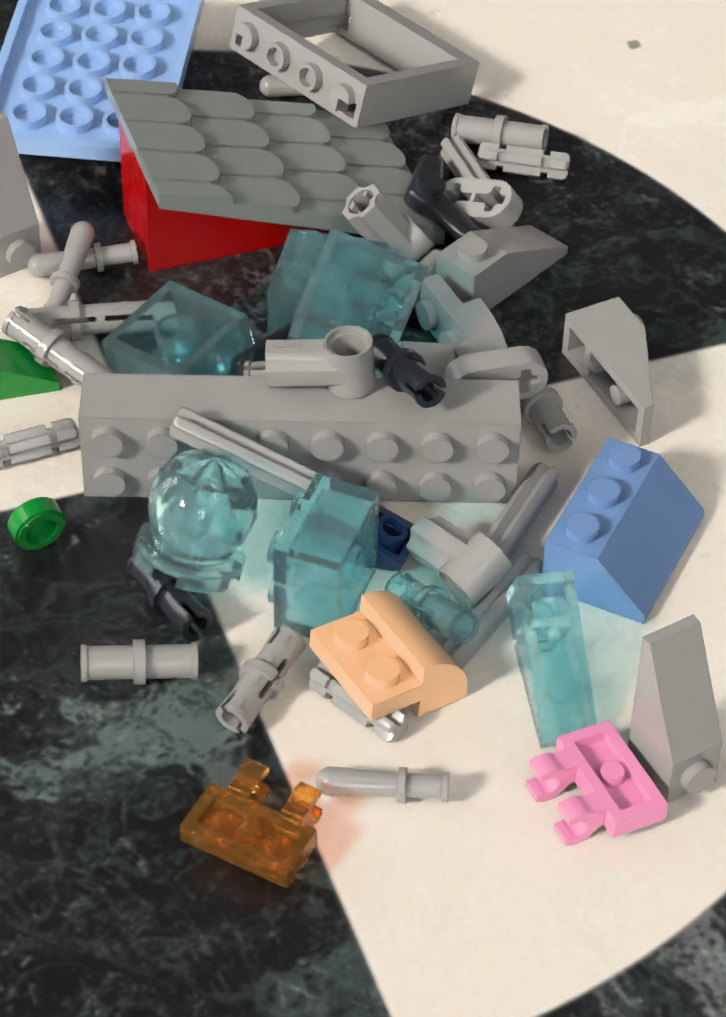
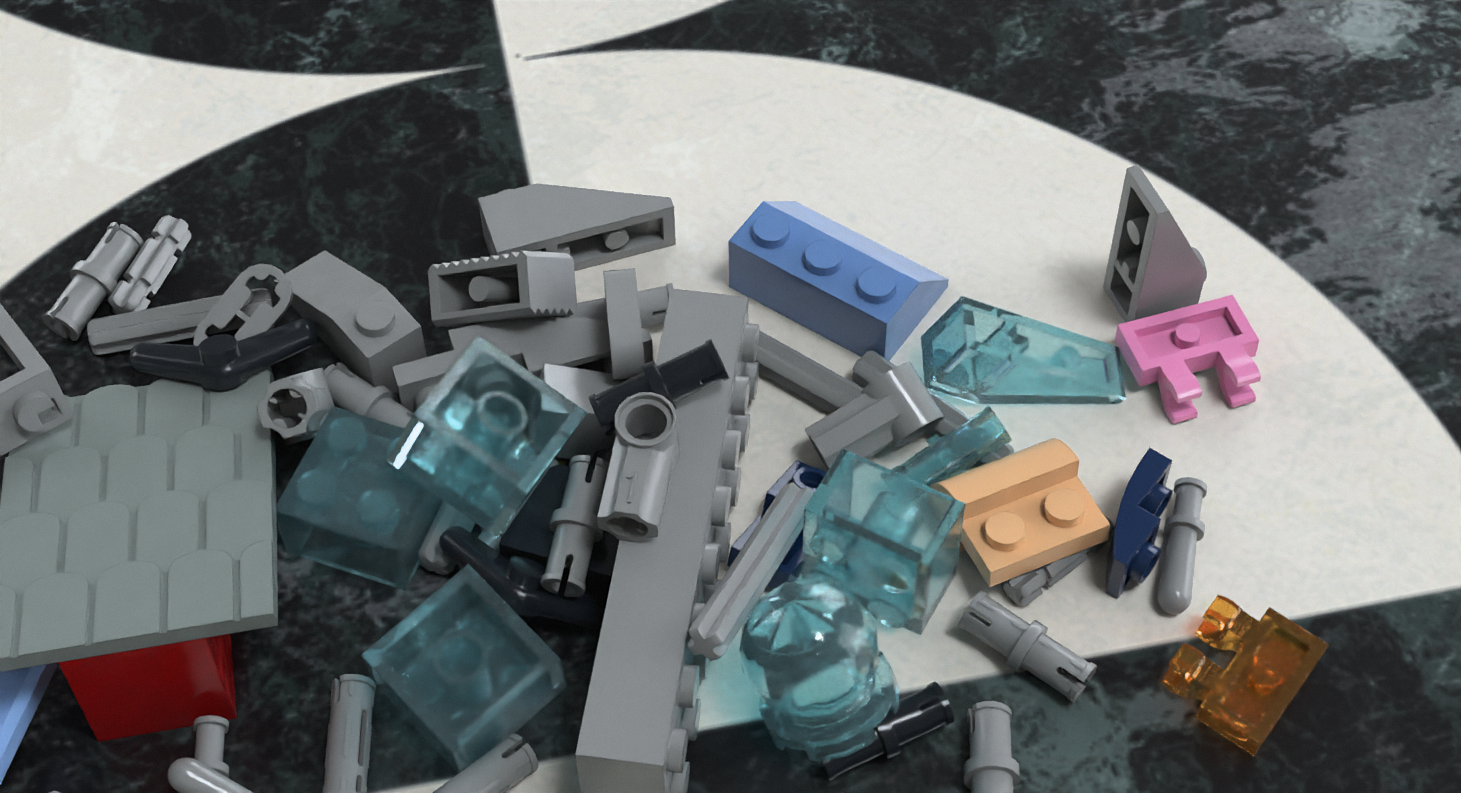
camera: 80 degrees left, 10 degrees up
(378, 735) = (1137, 523): none -> dark blue slope
(526, 316) = (502, 288): none -> light grey brick

